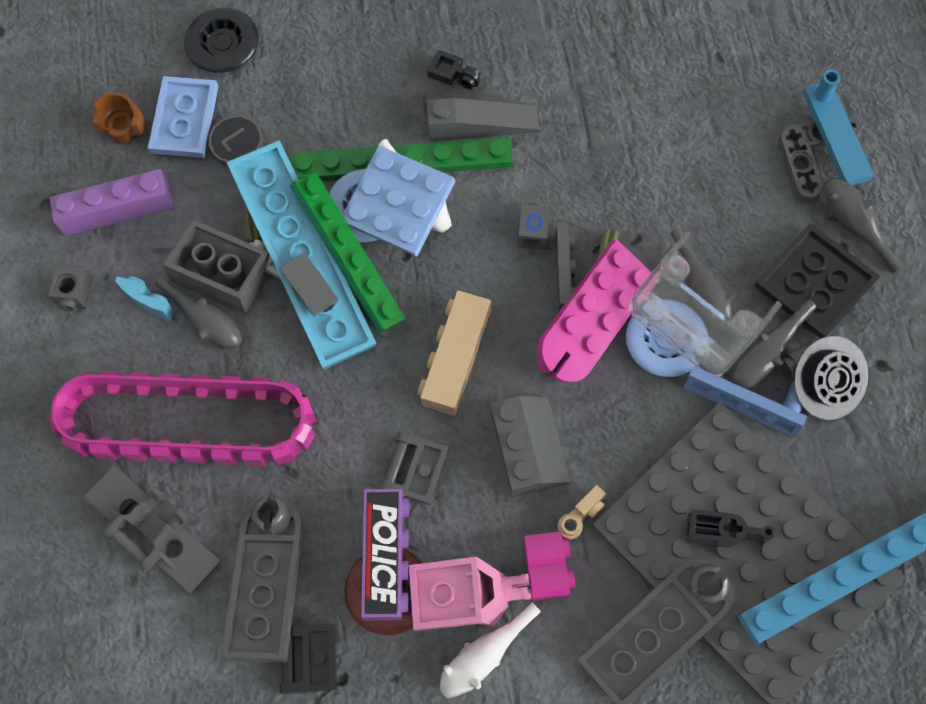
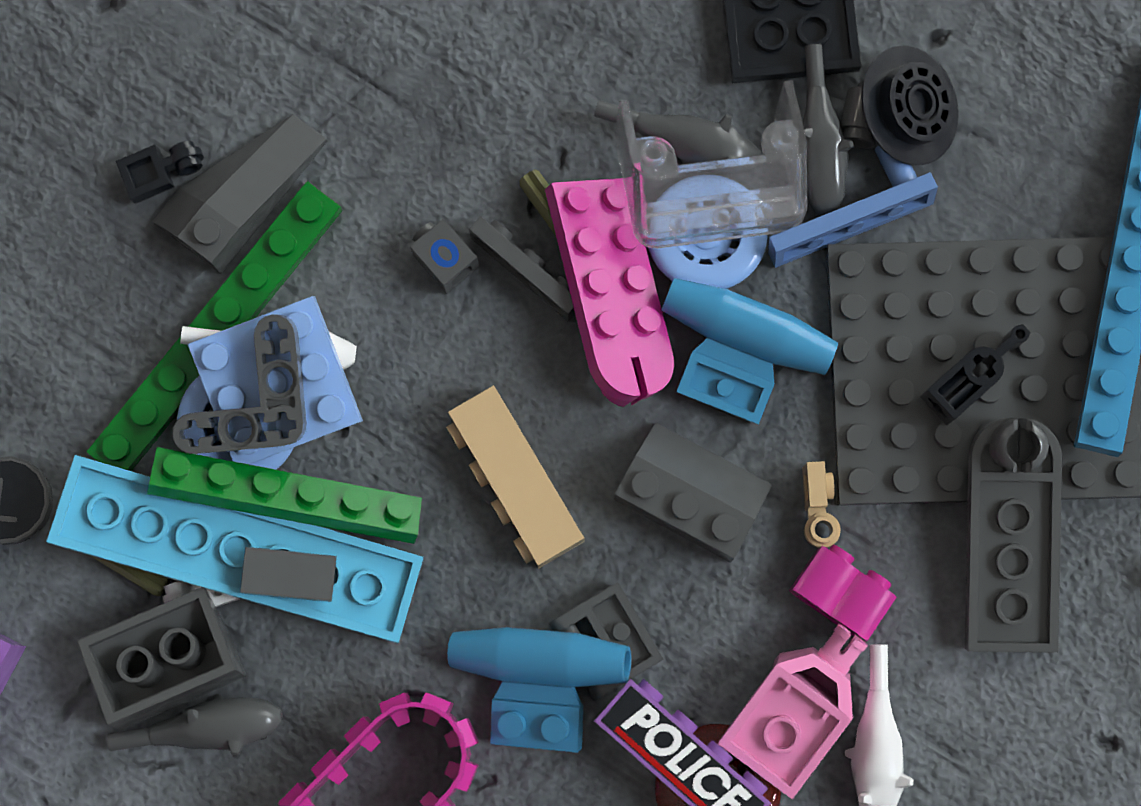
camera: 50 degrees left, 10 degrees up
(139, 294) = (108, 780): medium azure slope -> none
(367, 446) = (539, 679): none -> dark azure plate
(383, 204) = (270, 401): none -> dark grey beam
(627, 402) = (740, 347): none -> dark azure plate

